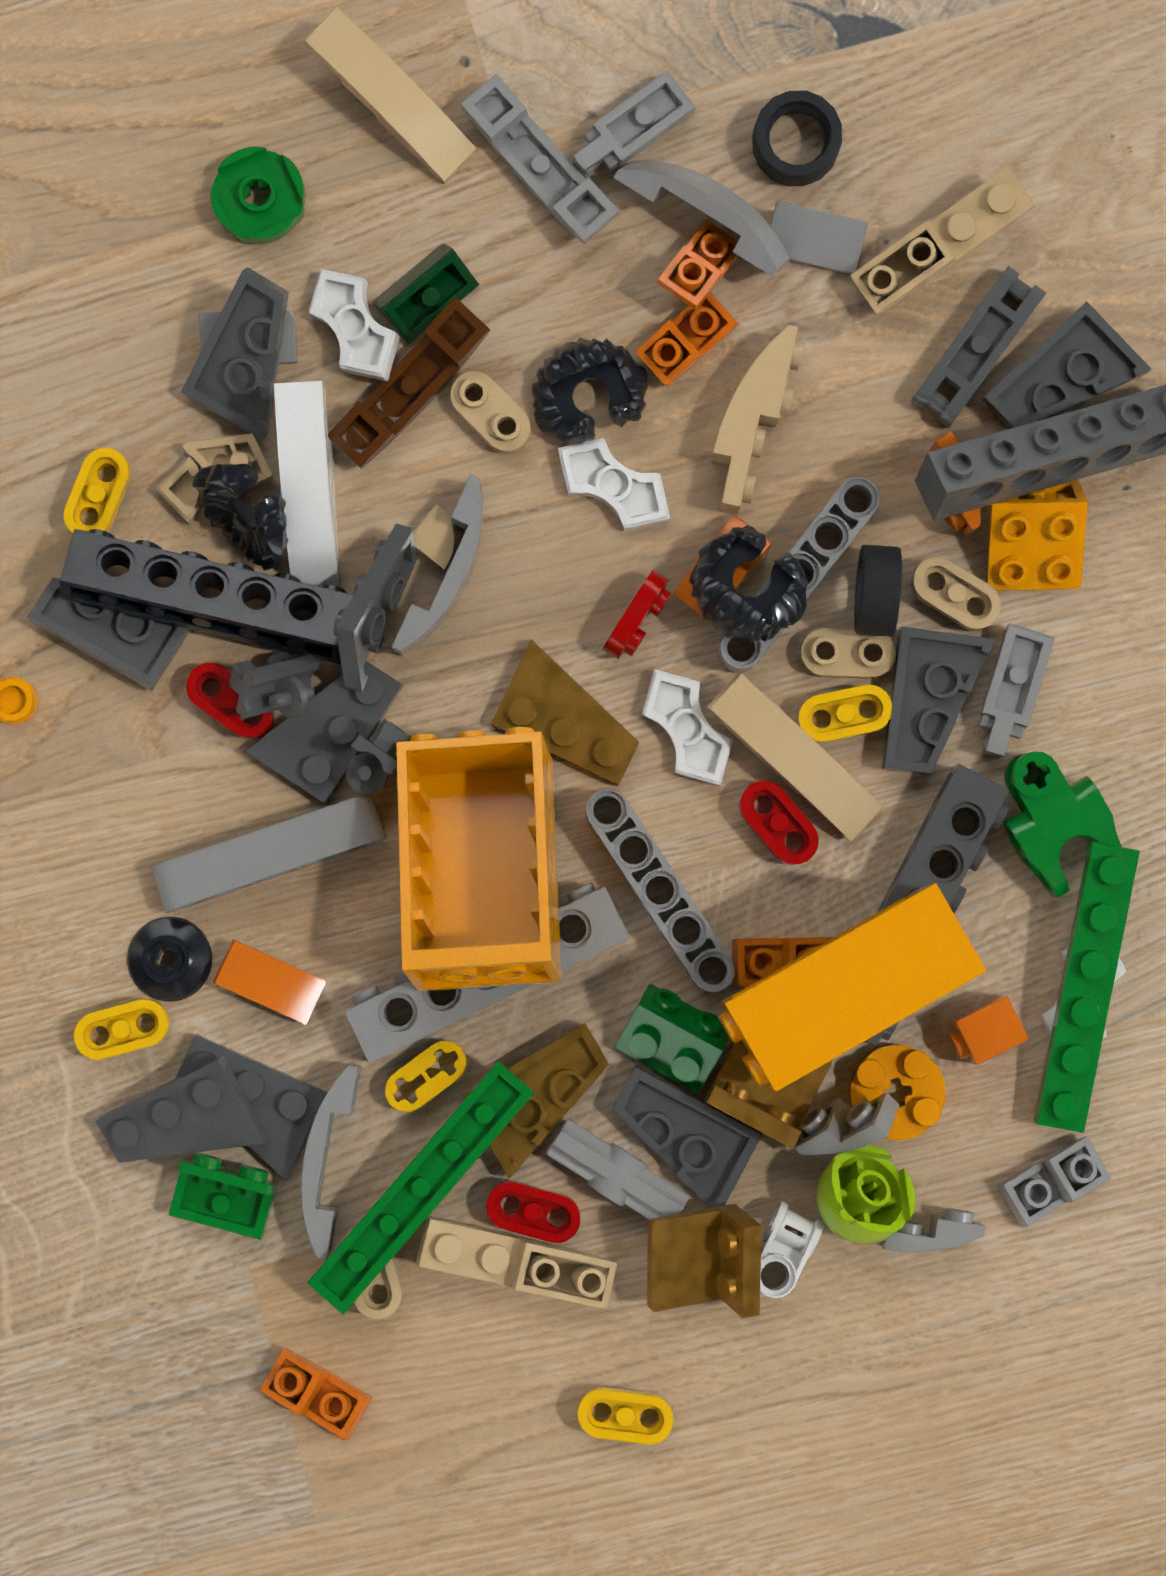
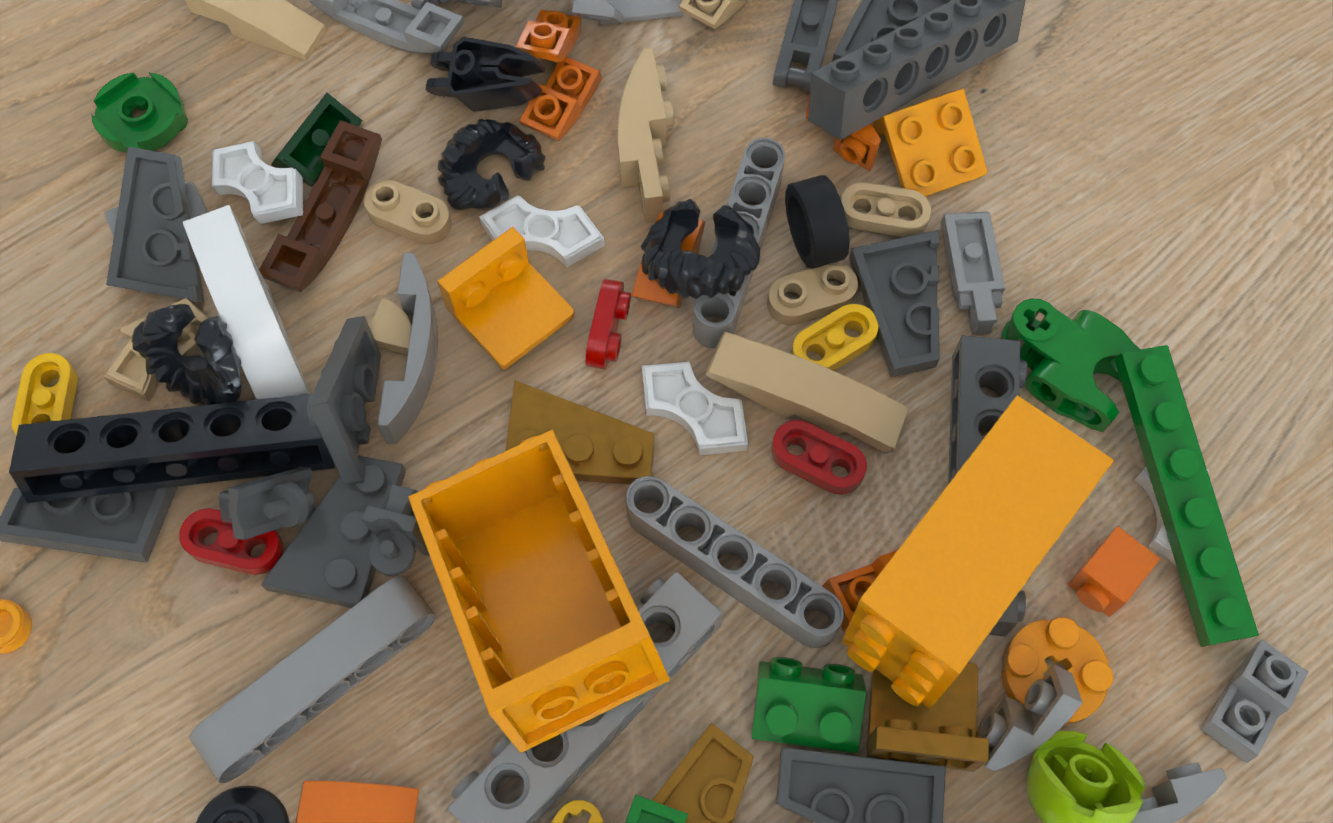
camera: 20 degrees left, 20 degrees down
(552, 558) = (504, 300): none -> light orange bracket
(615, 288) = (485, 74): none -> black hinge

